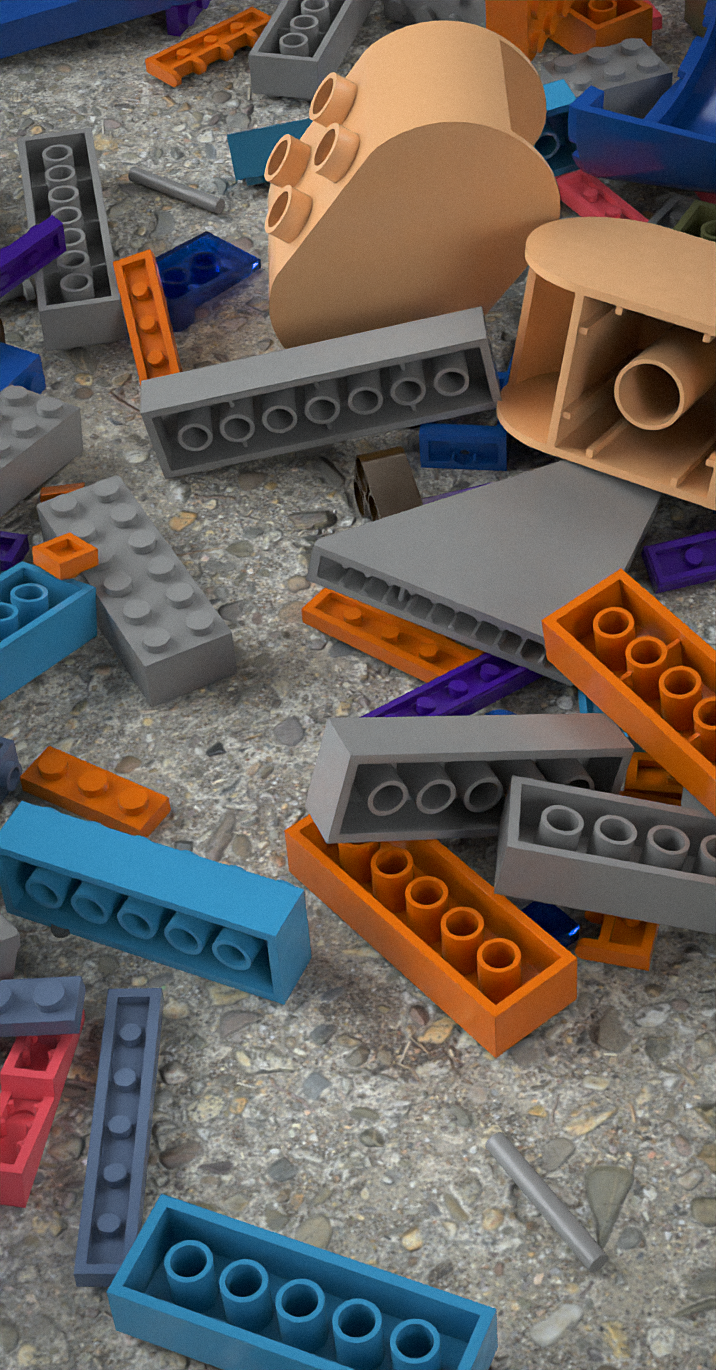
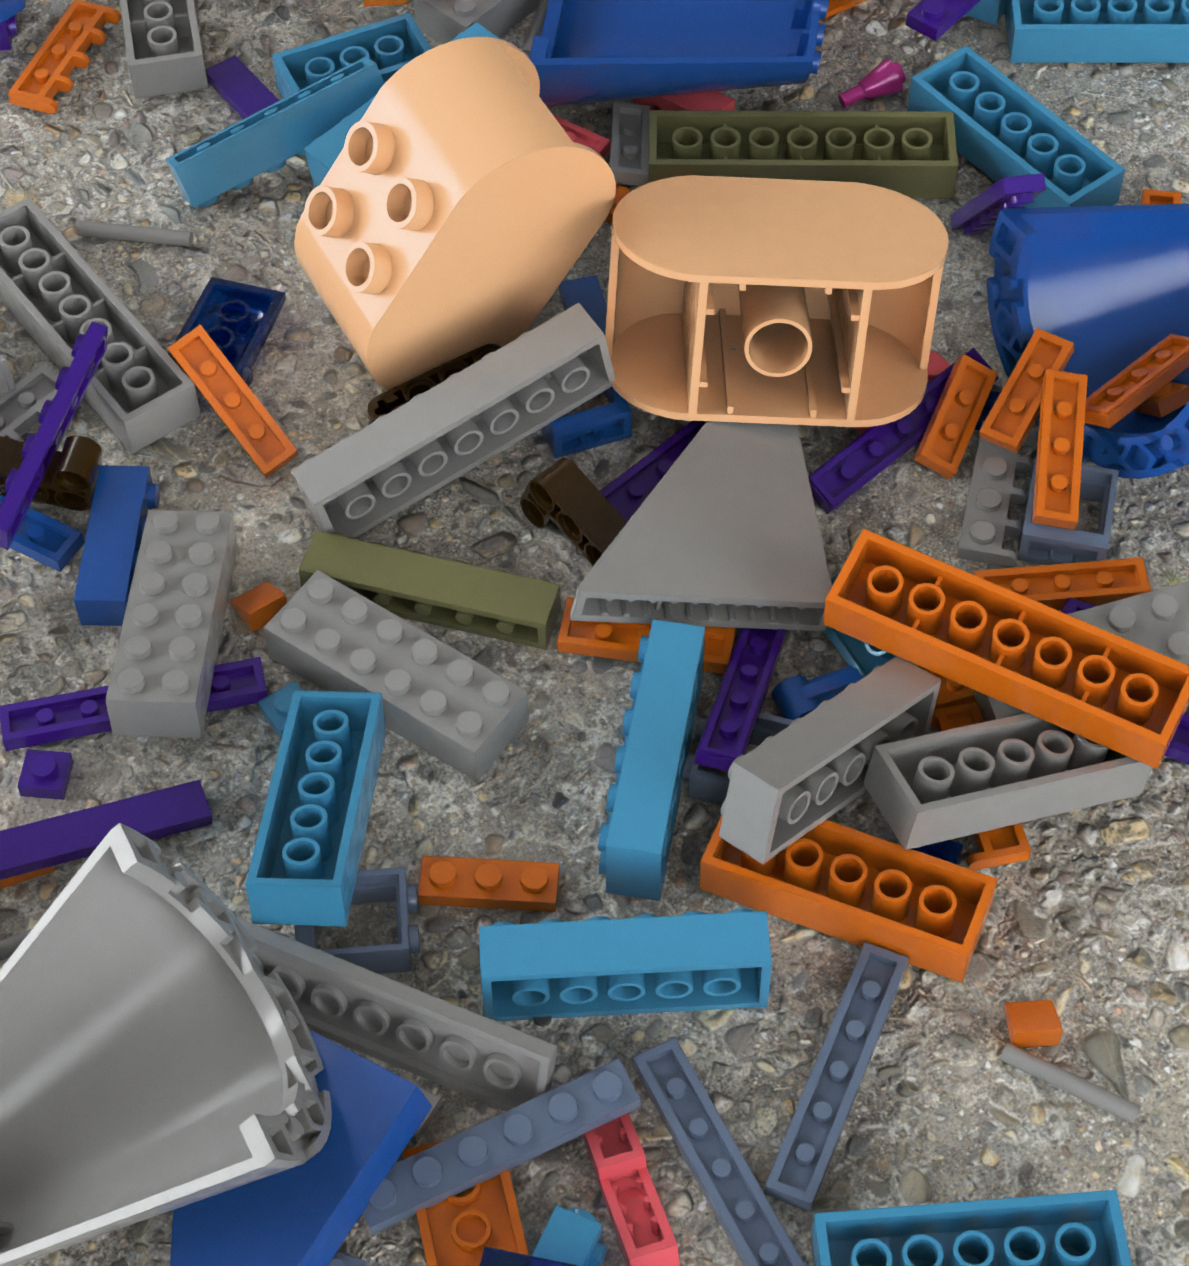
camera: 30 degrees left, 10 degrees up
(65, 556) = (341, 674): orange plate -> none
(221, 531) = (439, 589): none -> olive brick
(265, 769) = (652, 761): none -> dark azure brick
(298, 1091) = (836, 1077): none -> sand blue plate
(542, 1127) = (1033, 1023): none -> orange slope

